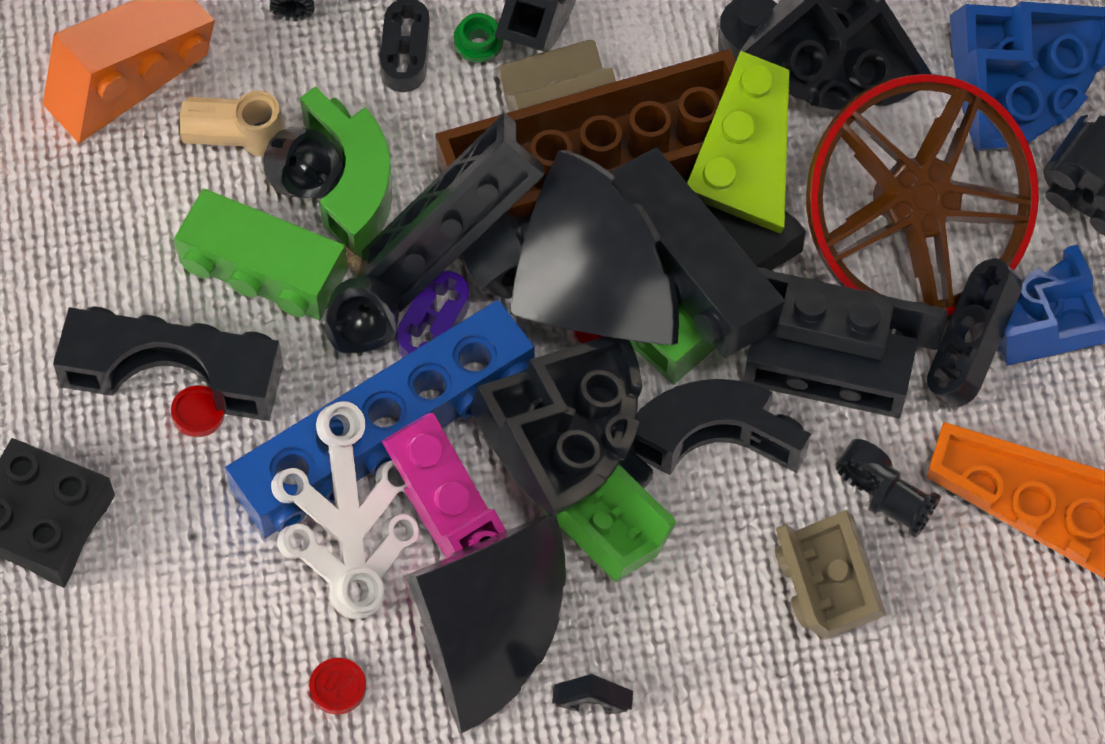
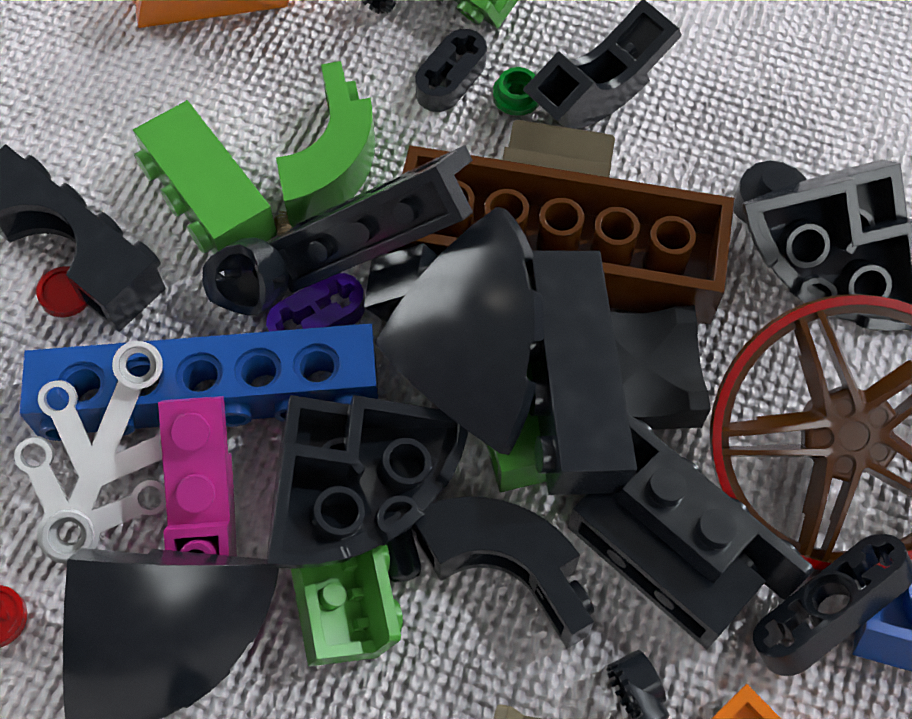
camera: 30 degrees right, 0 degrees up
(232, 121) = (266, 65): tan piece -> none
(298, 160) = (288, 119): black piece -> none
(746, 146) = (693, 295): lime wing -> none

